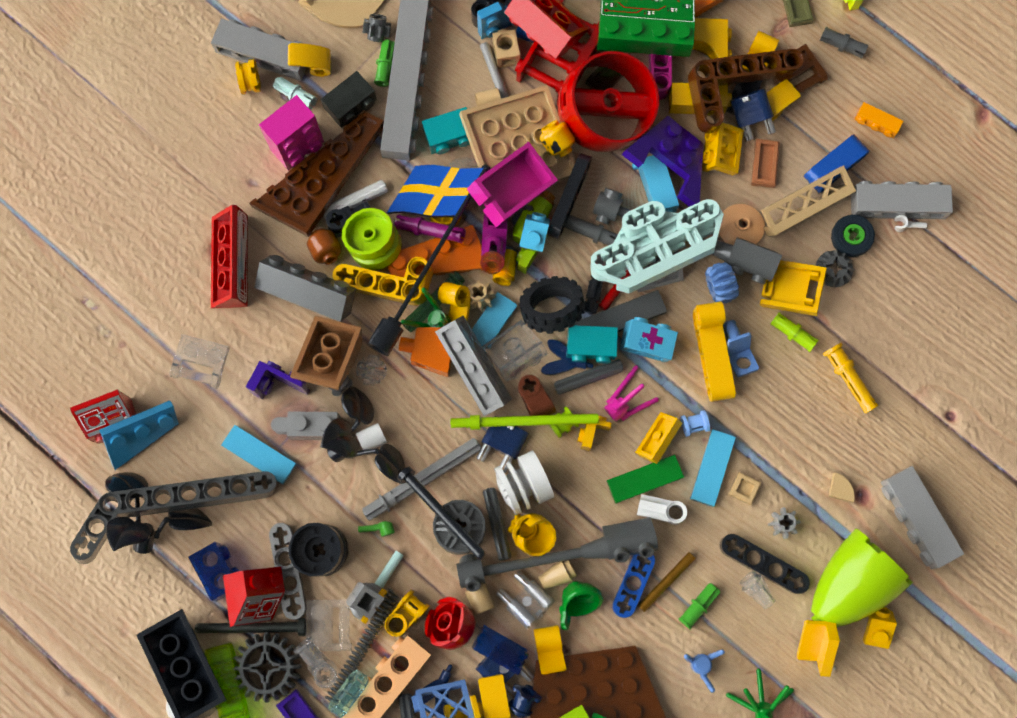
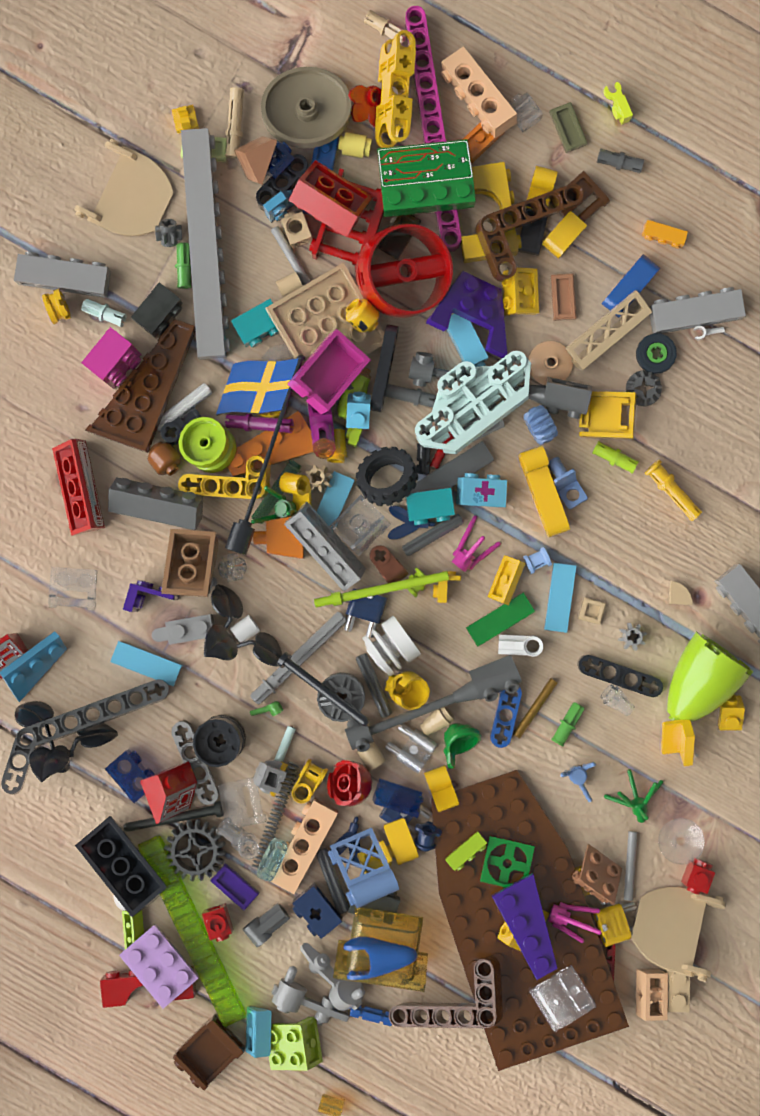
camera: 10 degrees left, 10 degrees up
(311, 56) = (111, 276): yellow panel -> none
(753, 109) = (542, 249): dark blue piece -> none

